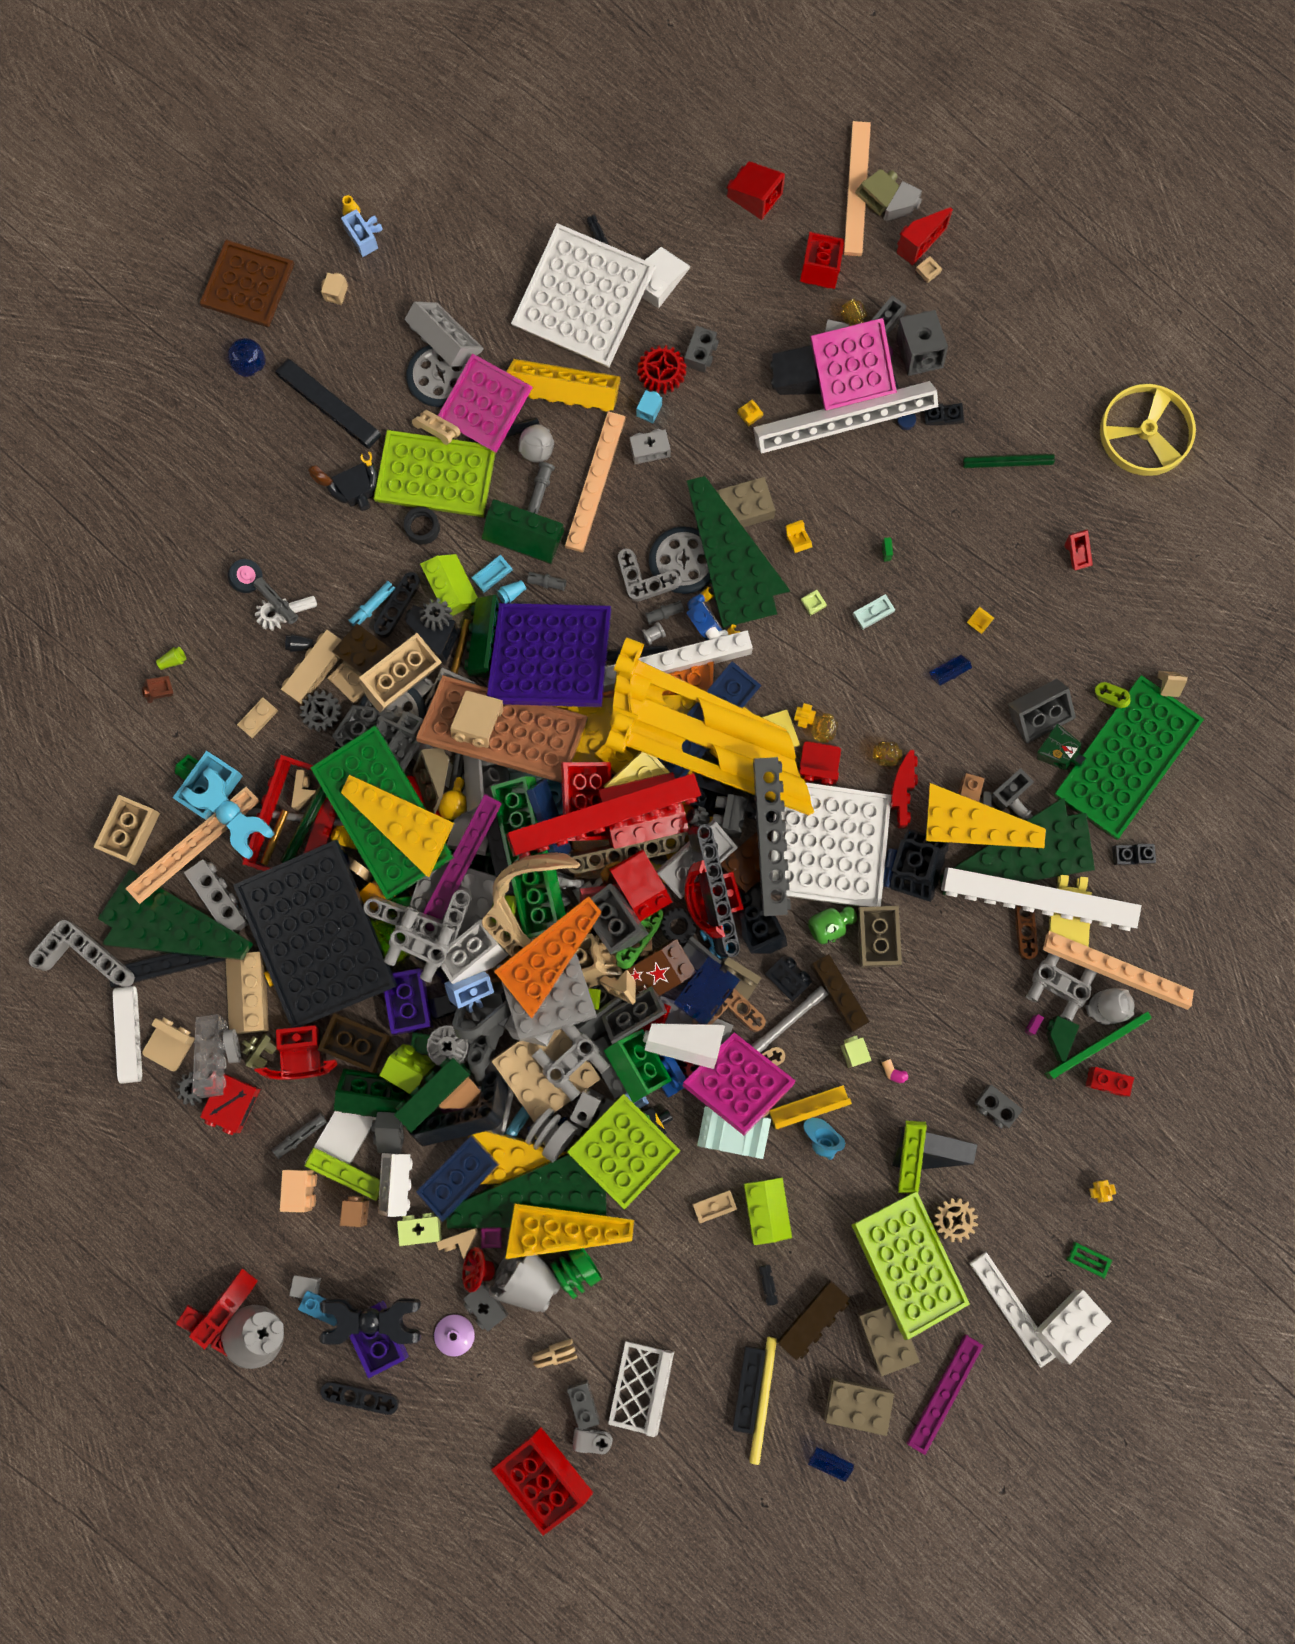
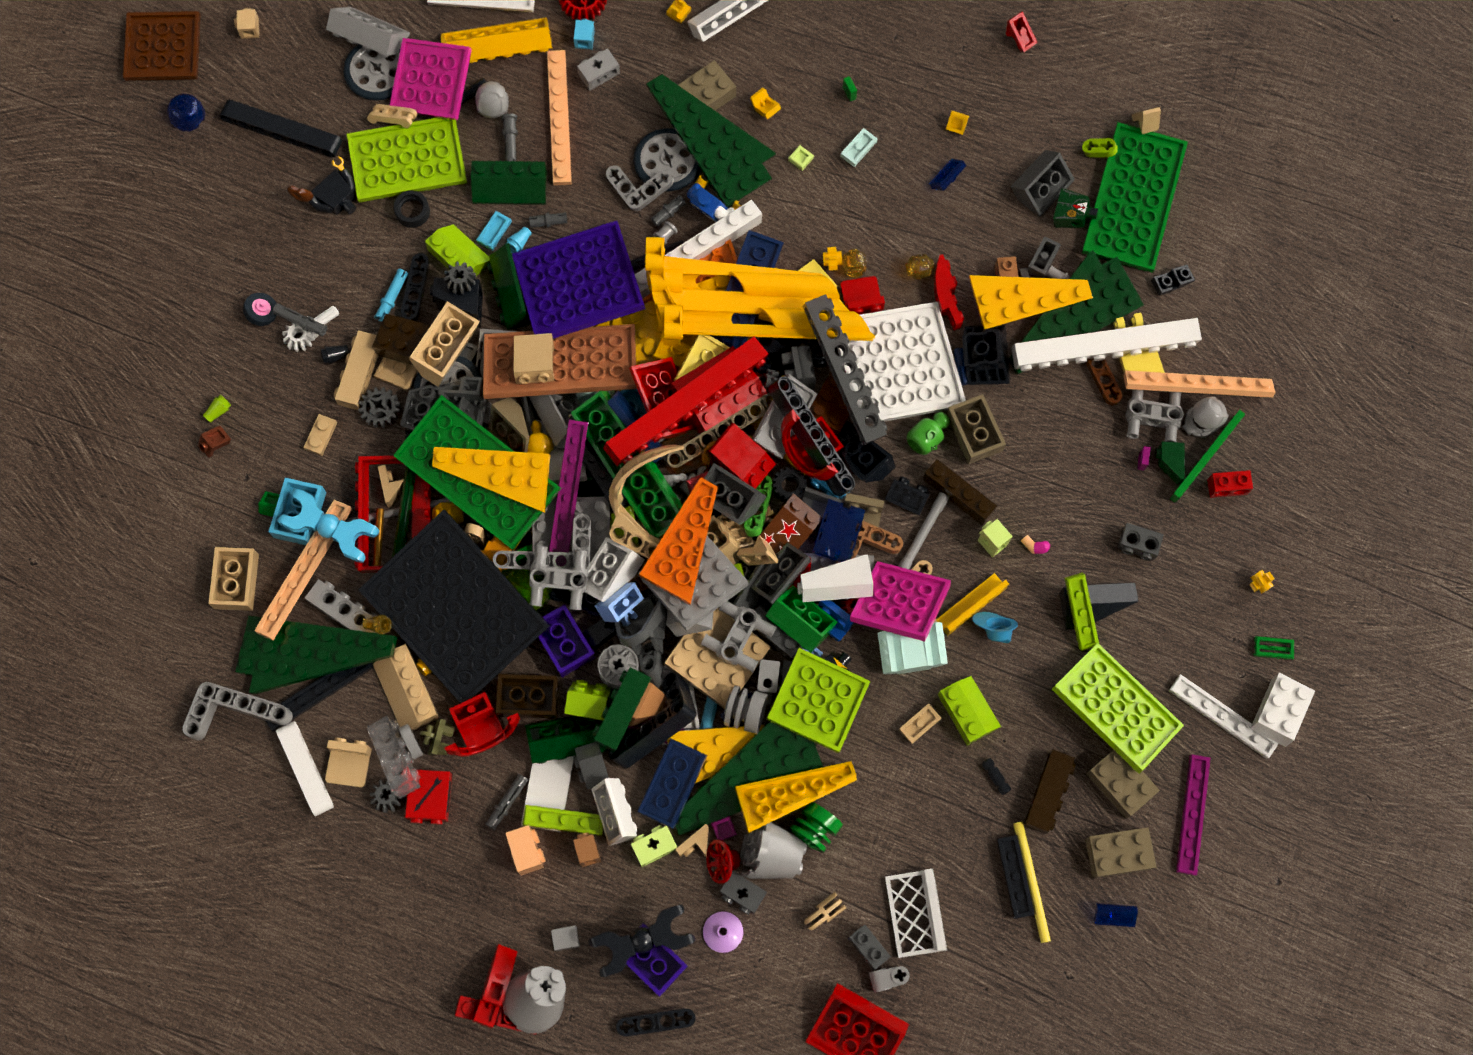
camera: 25 degrees left, 5 degrees down
(240, 925) = (379, 624): none -> clear yellow cone
(311, 1306) = (581, 951): dark azure bracket -> none
(419, 1042) = (590, 674): green tile -> none
(460, 647) = (489, 304): pearl gold bar -> none
(960, 1212) = (1150, 656): tan gear -> none

